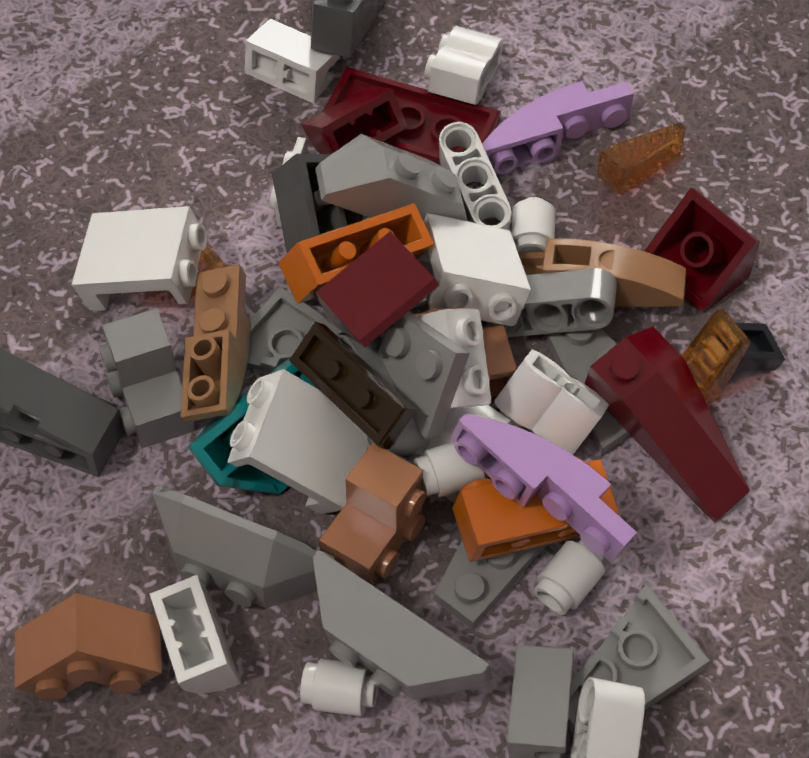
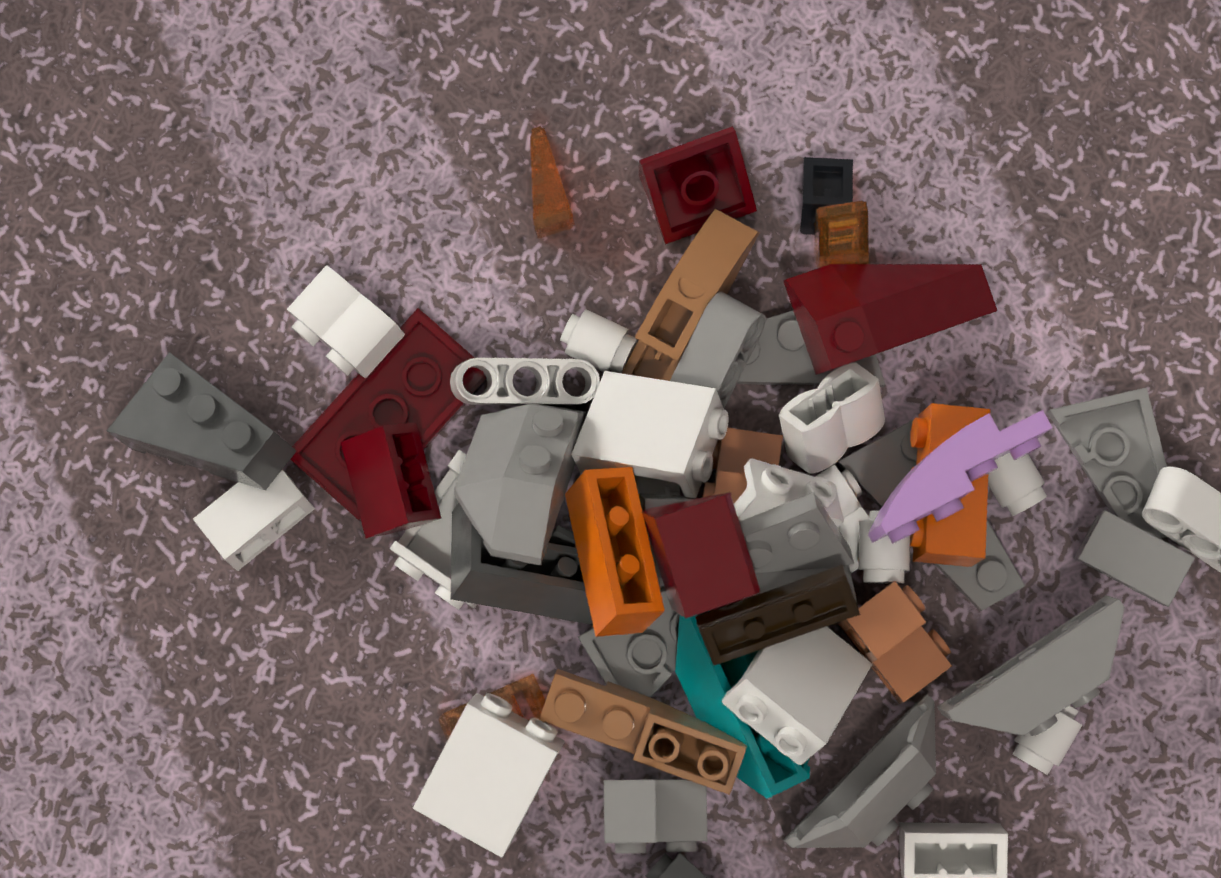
camera: 65 degrees left, 25 degrees up
(569, 112) = (468, 279): lavender slope -> none

